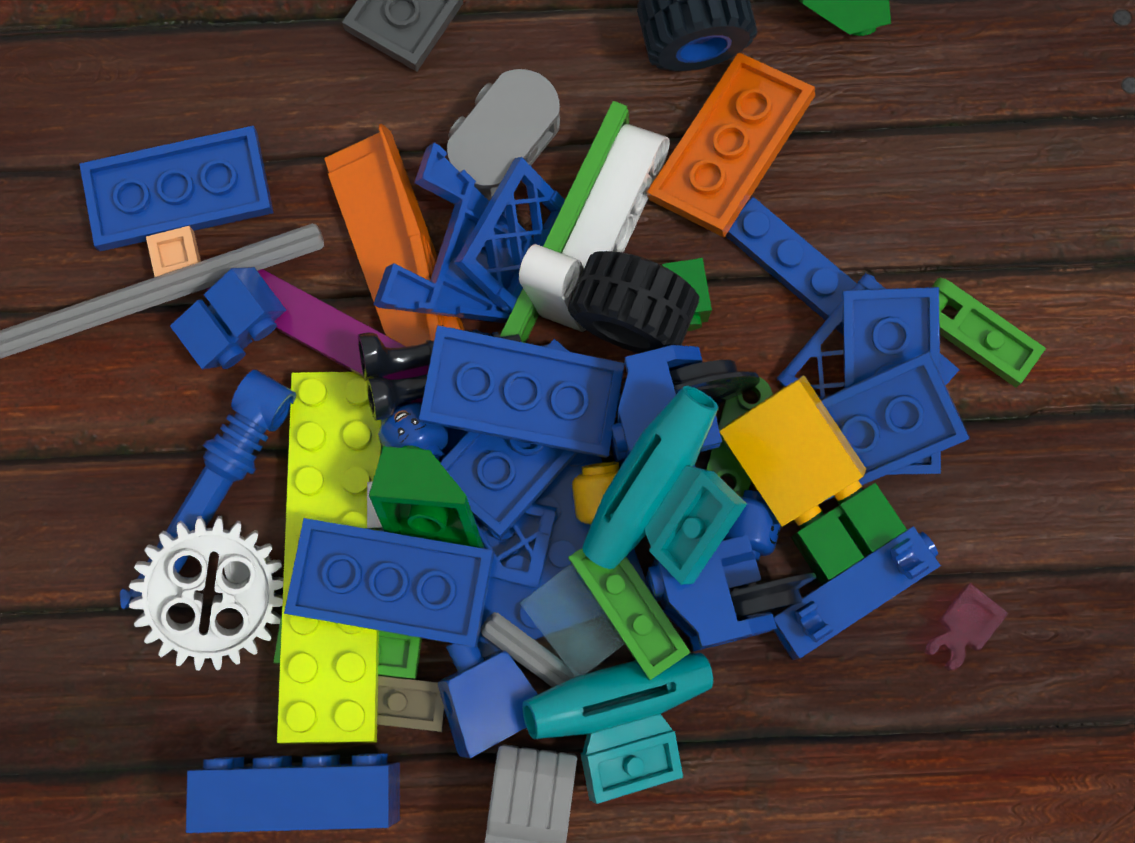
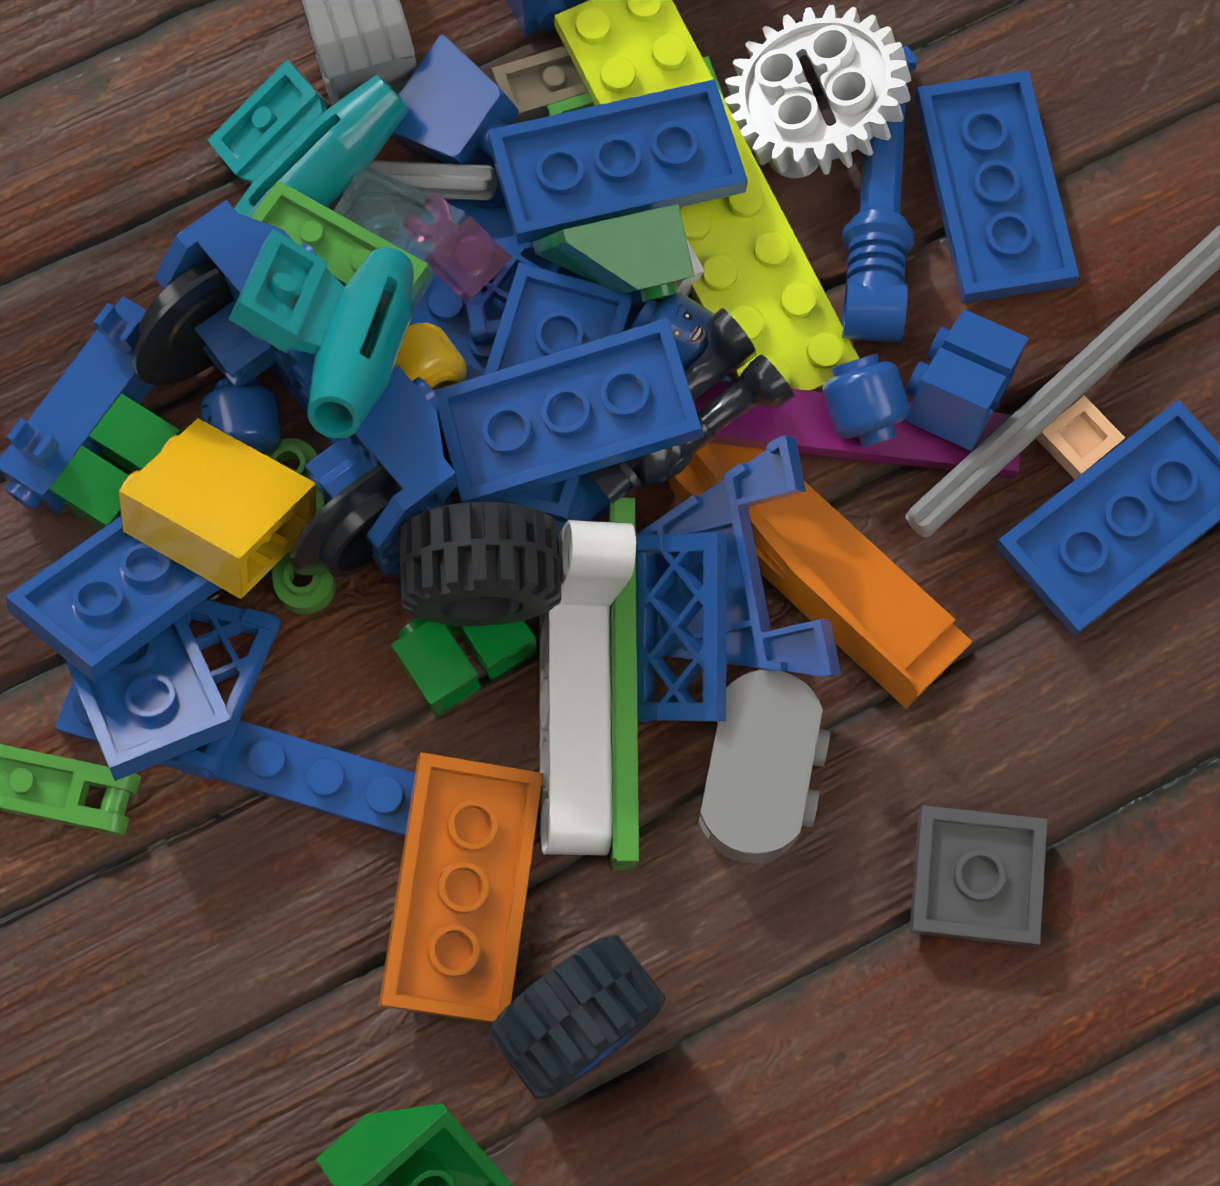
camera: 155 degrees right, 5 degrees down
(122, 464) = (995, 187): none -> blue plate
(307, 327) = (866, 399): none -> blue head
(536, 568) = (462, 254): none -> clear pink plate

